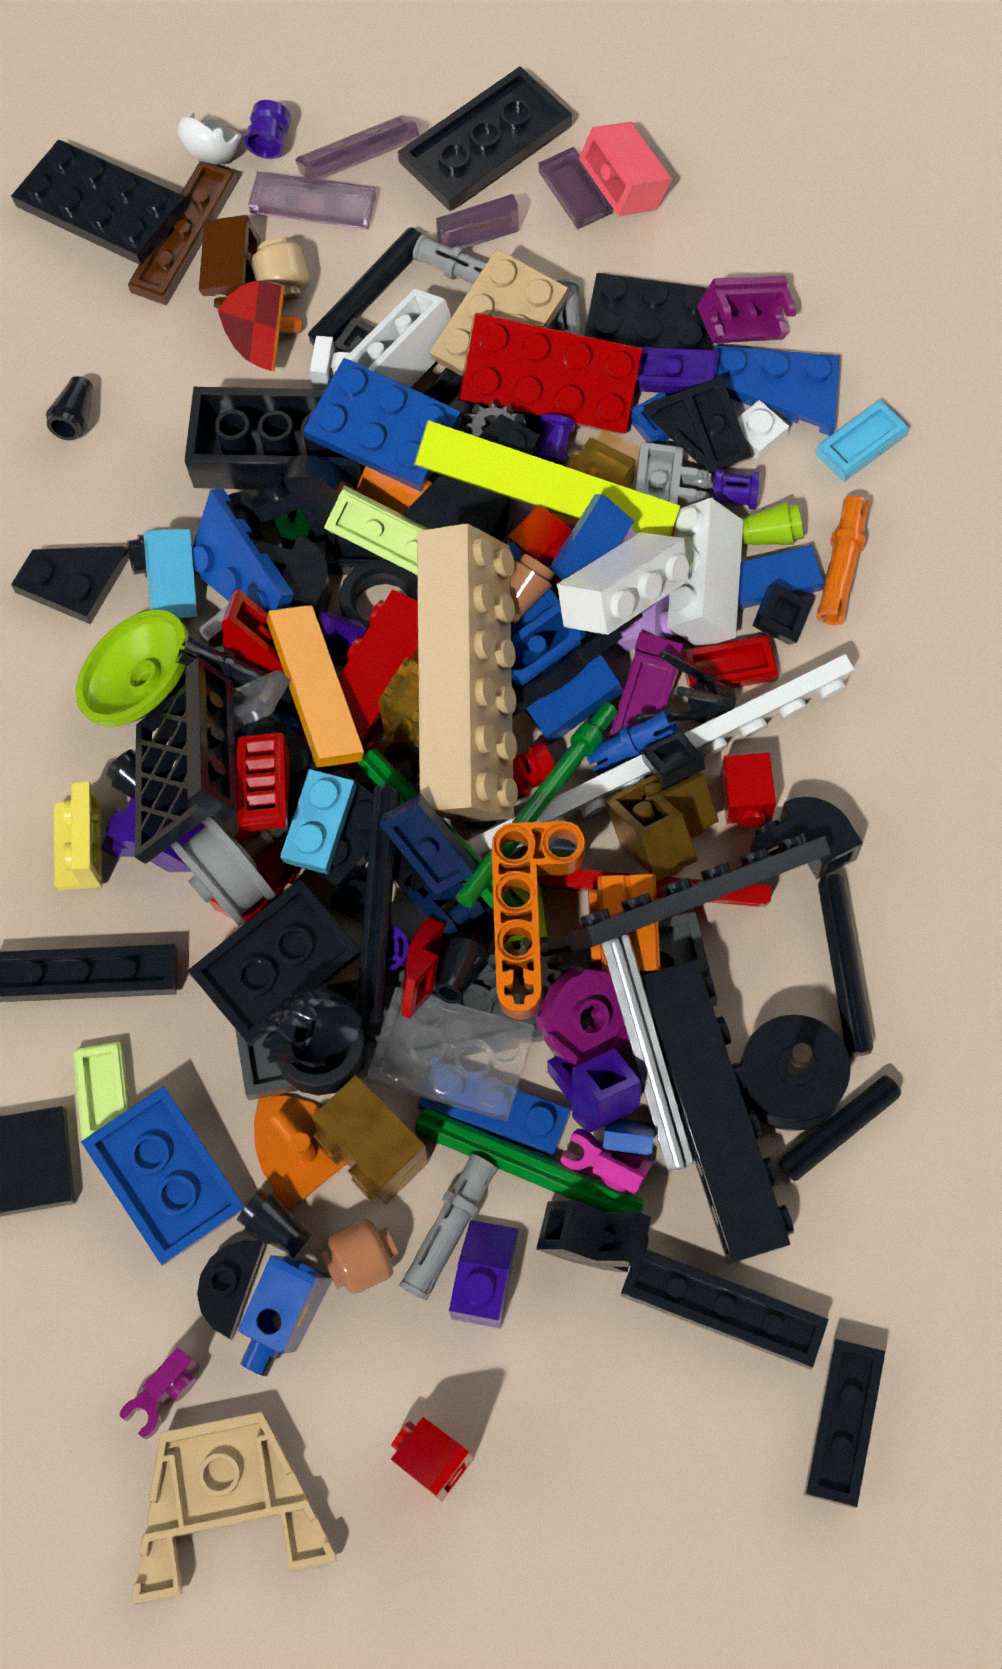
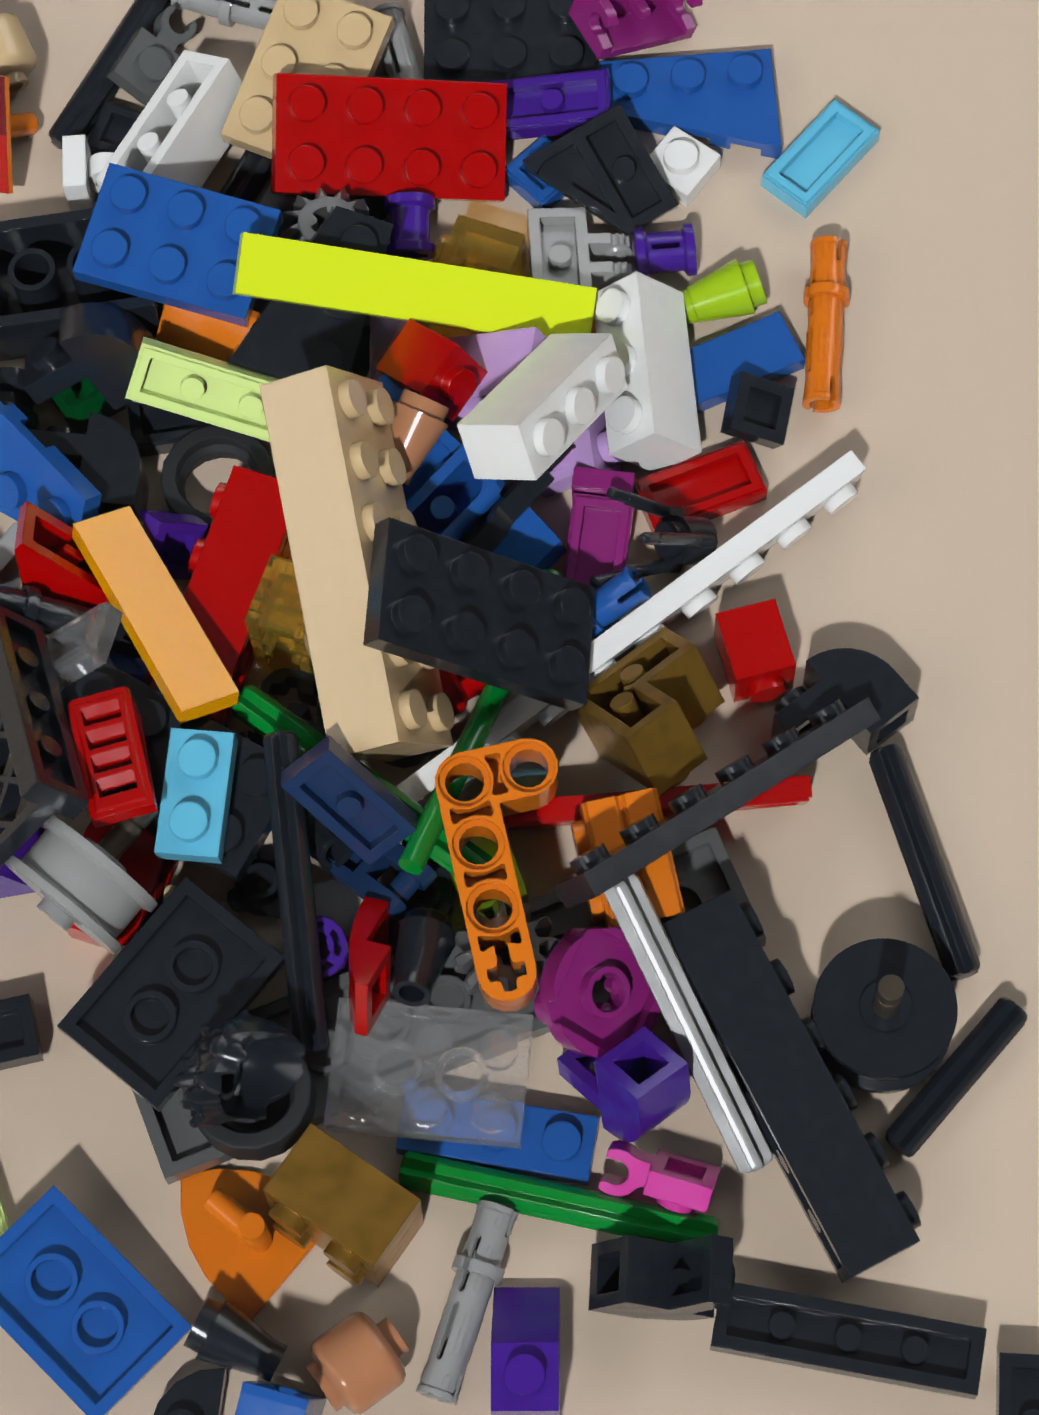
camera: 10 degrees left, 0 degrees up
(389, 290) = (149, 57): none -> dark grey plate
(548, 725) = (479, 615): none -> black plate
(595, 534) = (492, 349): blue tile -> none
(629, 1136) = (684, 1139): blue tile -> none
(673, 759) = (650, 630): black tile -> none

